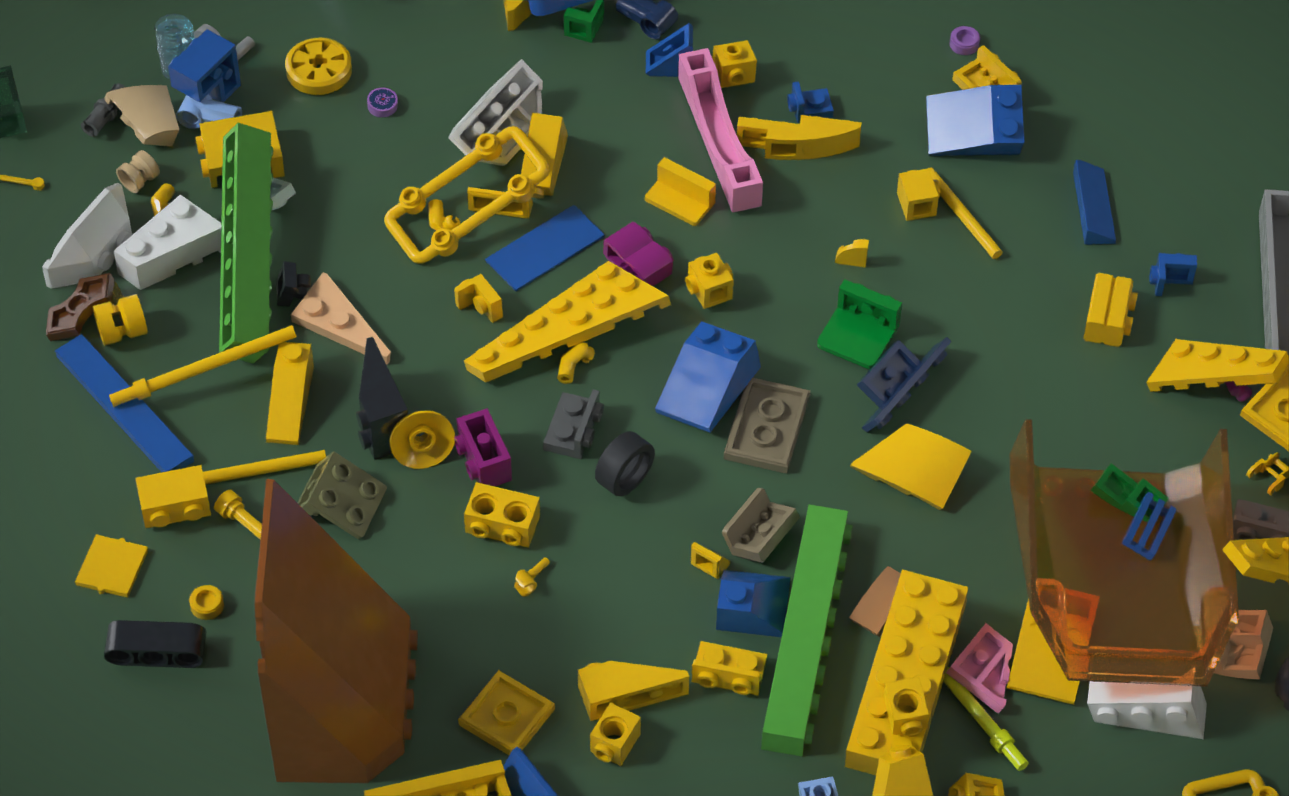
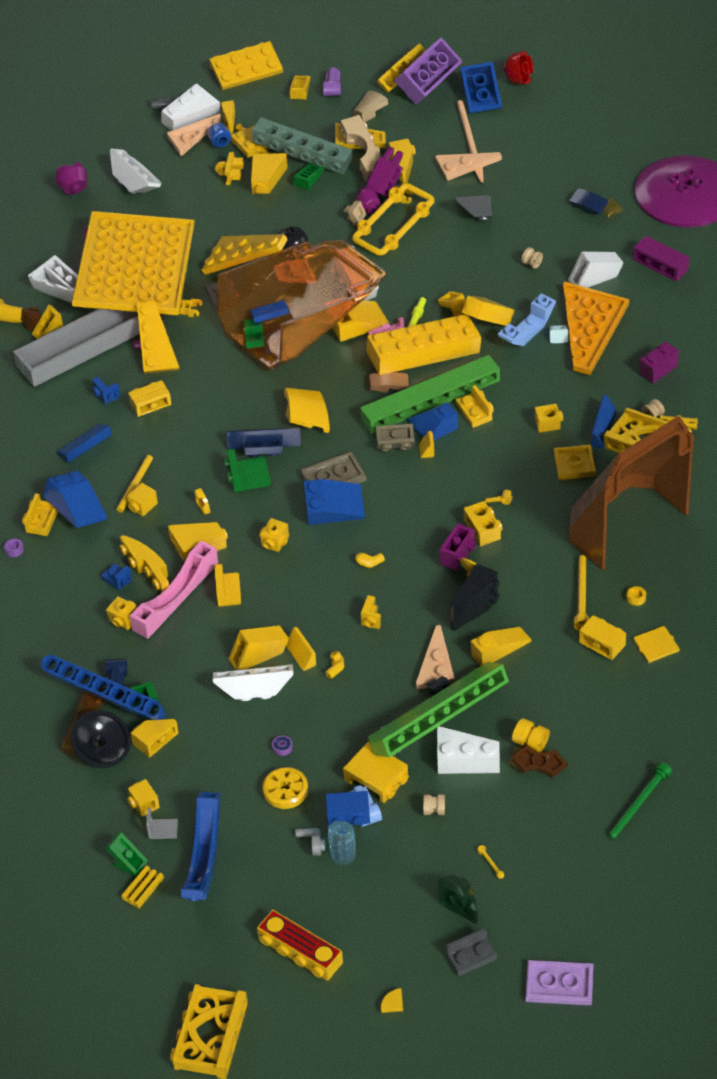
camera: 125 degrees left, 5 degrees down
(90, 241) = (495, 786): white wedge -> none
(100, 115) = (407, 854): dark grey pin -> none
(132, 416) = (572, 705): blue tile -> none
(142, 389) = (559, 692): yellow bar -> none
(147, 112) = (393, 827): tan slope -> none
(155, 644) = (678, 591): black beam -> none
(162, 197) = (447, 777): yellow arm -> none
(263, 467) = (548, 629): yellow bar -> none
(342, 494) = (536, 588): olive bracket -> none
(445, 241) = (336, 679): yellow bar -> none
(544, 247) = (310, 619): blue piece -> none
(569, 319) = (341, 570): yellow wing -> none
(573, 424) = (404, 535): dark grey bracket -> none
(624, 463) = (413, 502): black tyre -> none
(628, 685) = (522, 429): yellow slope -> none
(638, 254) = (283, 573): magenta brick -> none
(664, 56) = (136, 643): blue slope -> none
(789, 205) = (187, 536): none -> yellow slope
(903, 693) = (448, 317): yellow brick -> none

